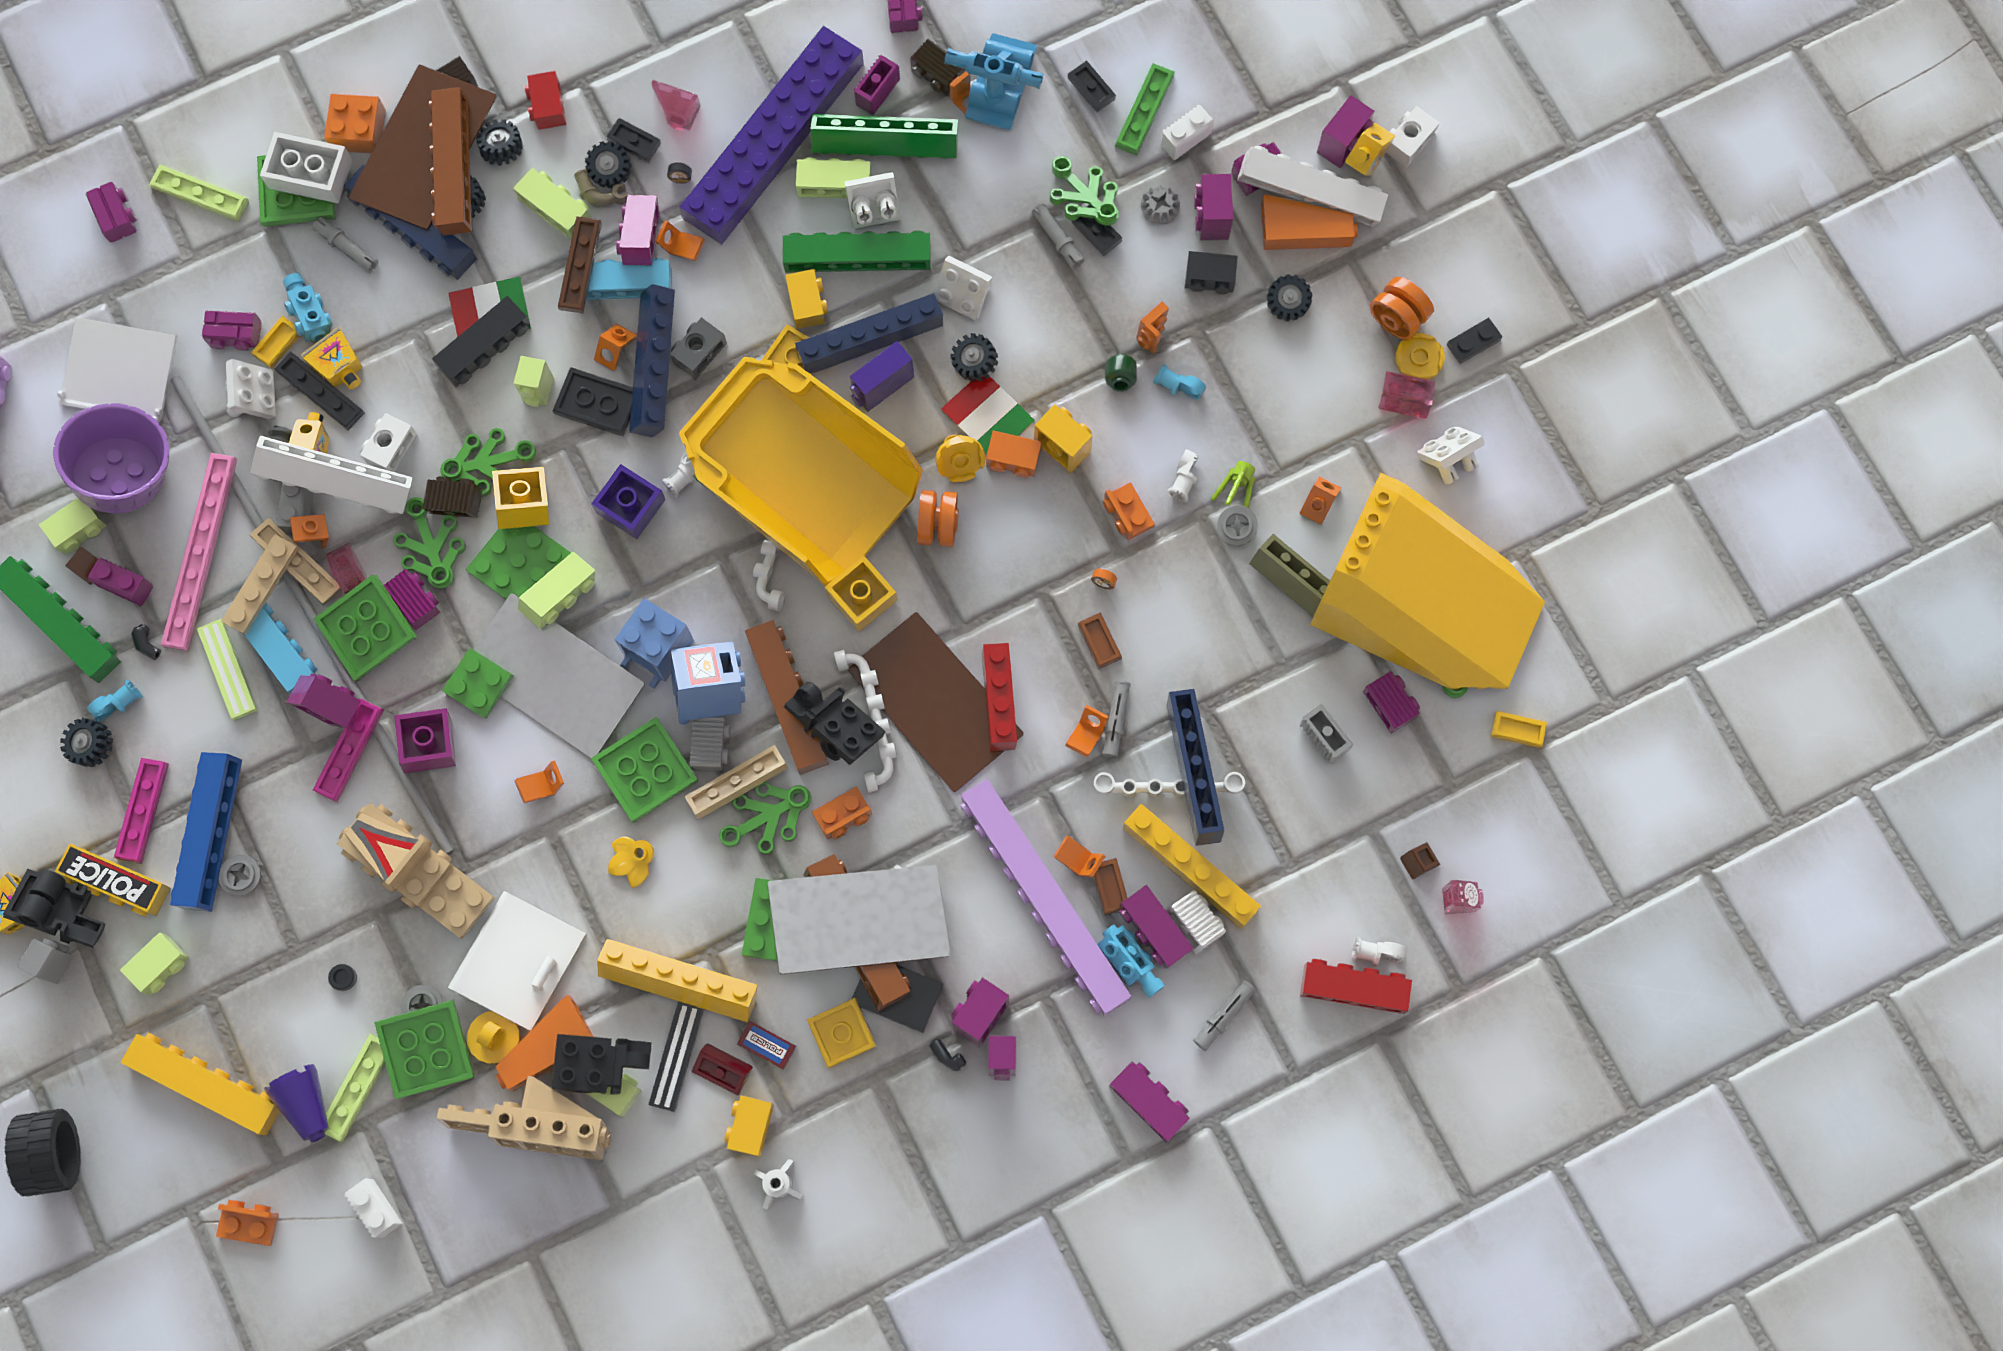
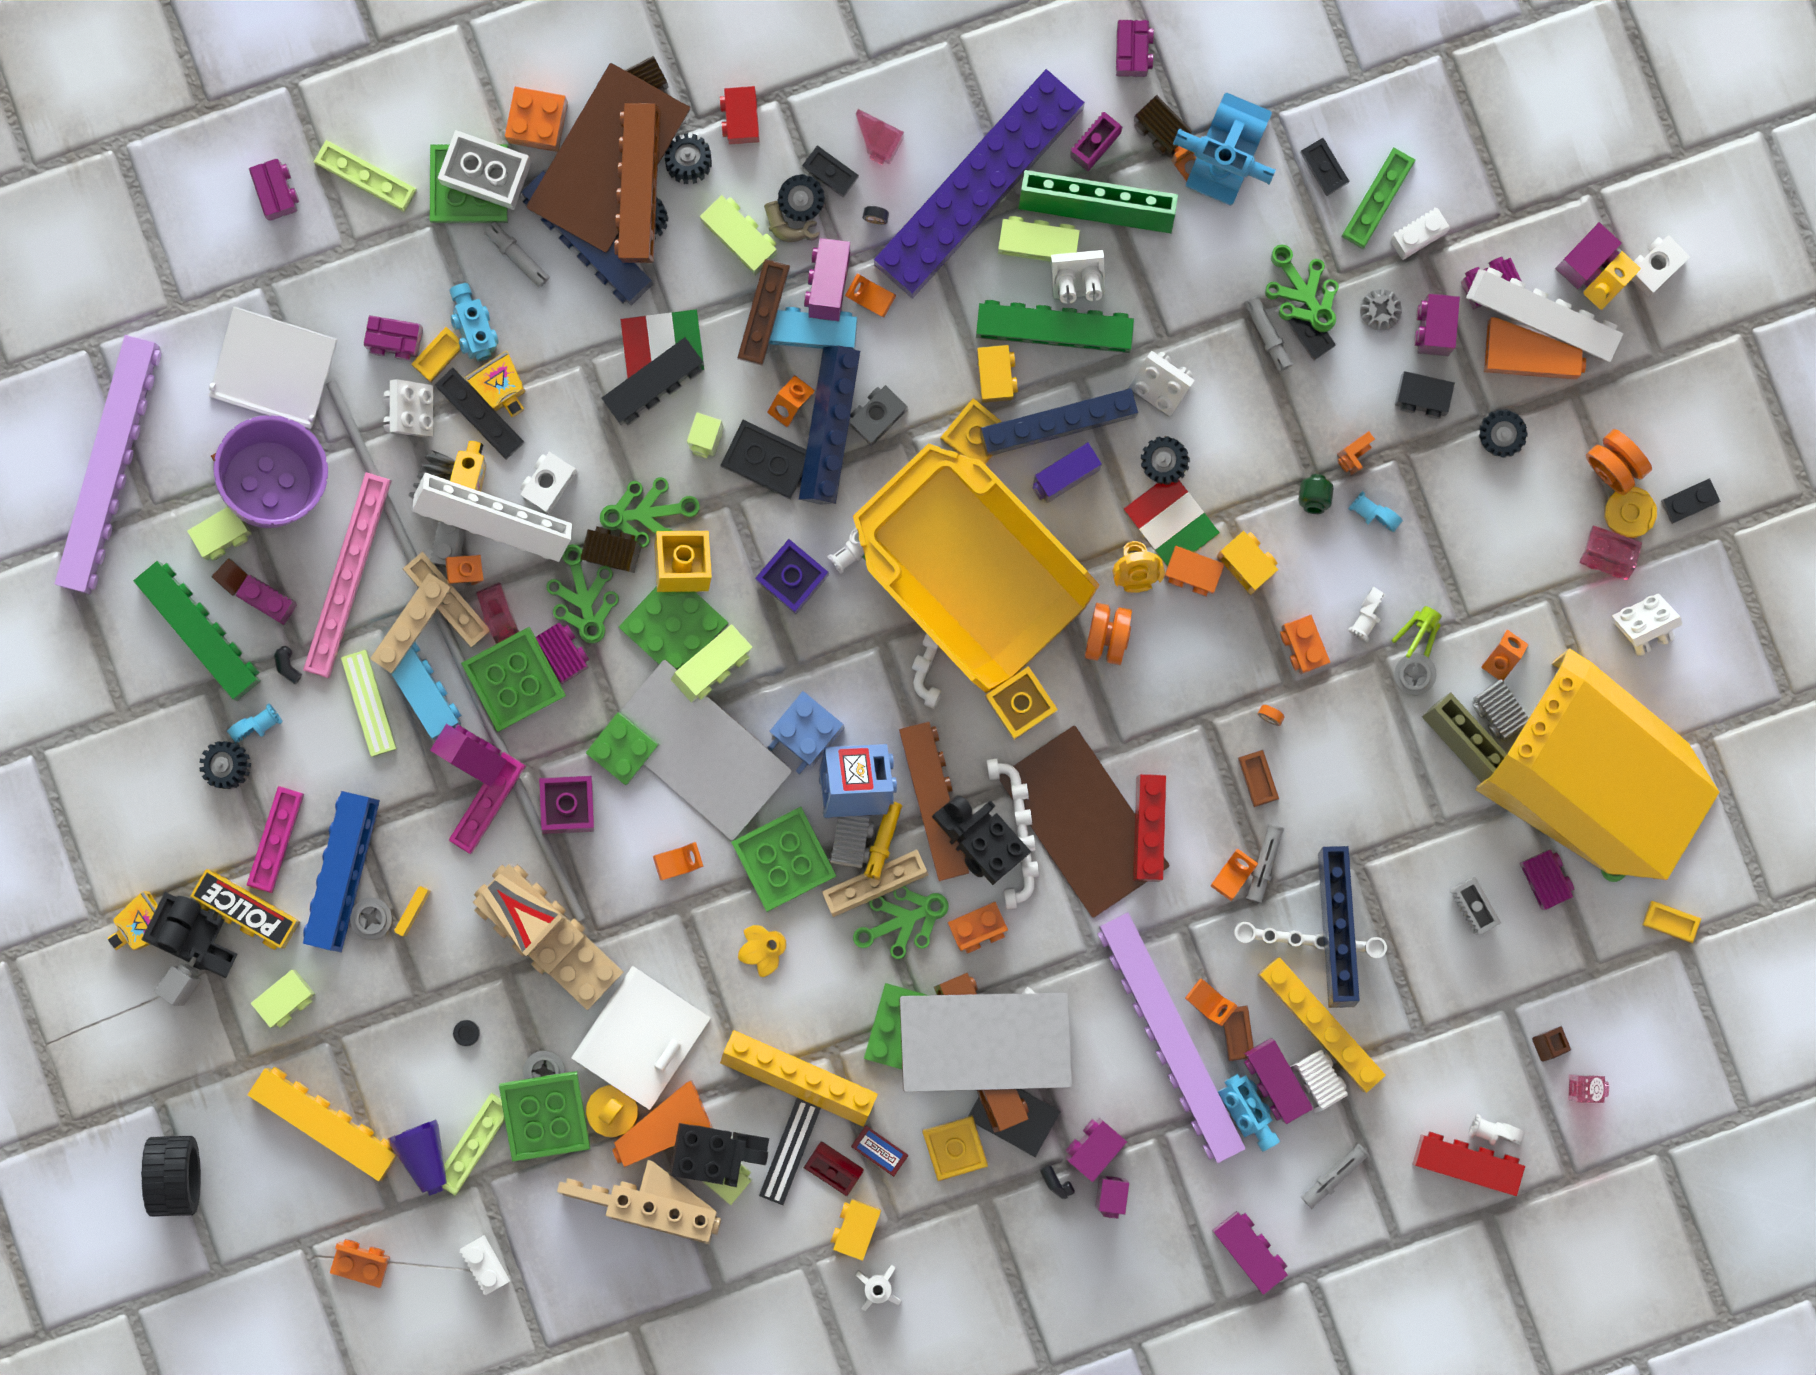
camera: 10 degrees right, 10 degrees up
(280, 862) = (412, 911): none -> yellow tile
(737, 749) = (879, 850): none -> yellow pin
(1321, 547) = (1501, 710): none -> light grey brick

